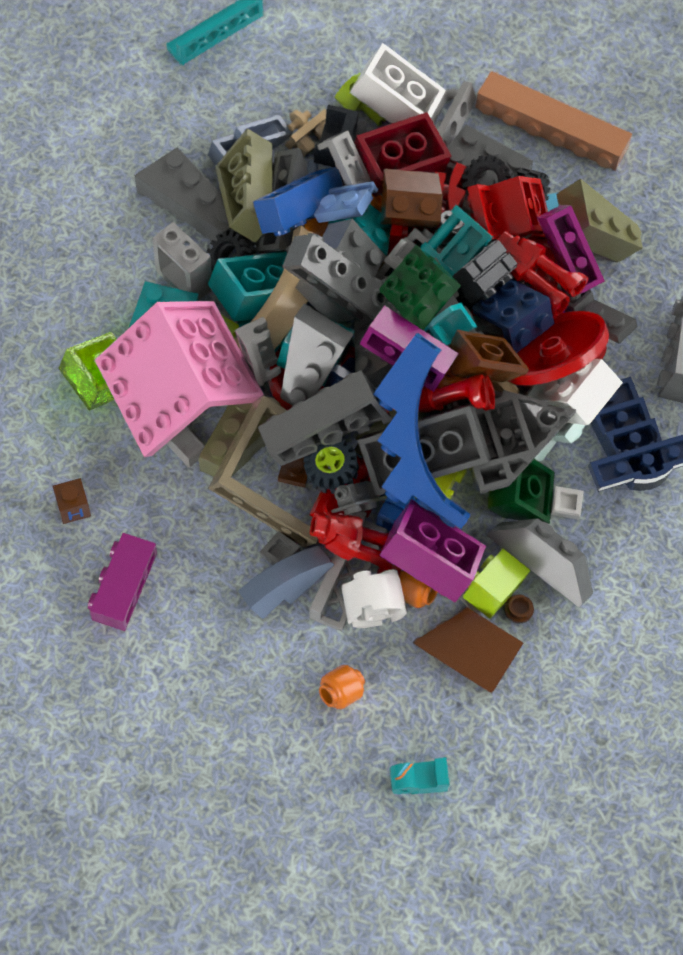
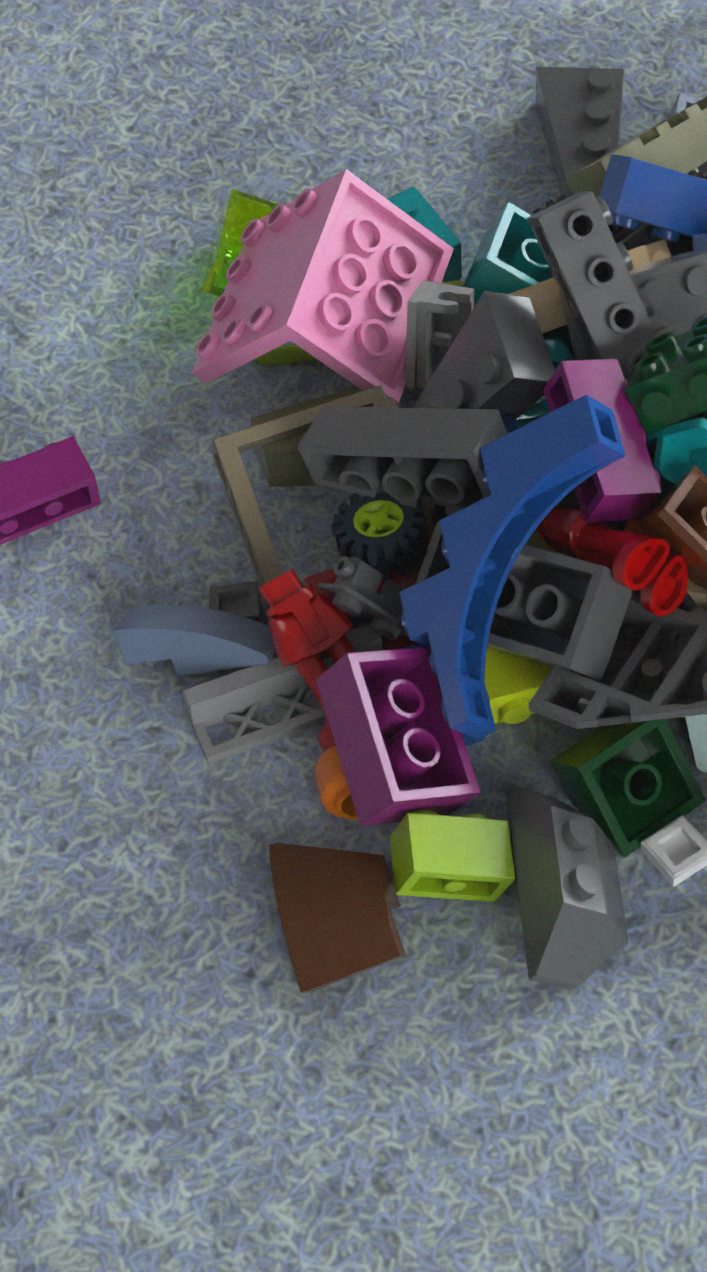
camera: 55 degrees right, 10 degrees down
(71, 501) = (65, 366): reddish brown brick -> none
(181, 265) = (477, 185): light grey window -> none
(187, 446) = (273, 387): light grey tile -> none
(342, 687) = (124, 819): orange head -> none
(373, 598) = (271, 742): white brick -> none
(420, 777) = (95, 1009): teal leg -> none
(519, 609) = (458, 923): reddish brown plate -> none

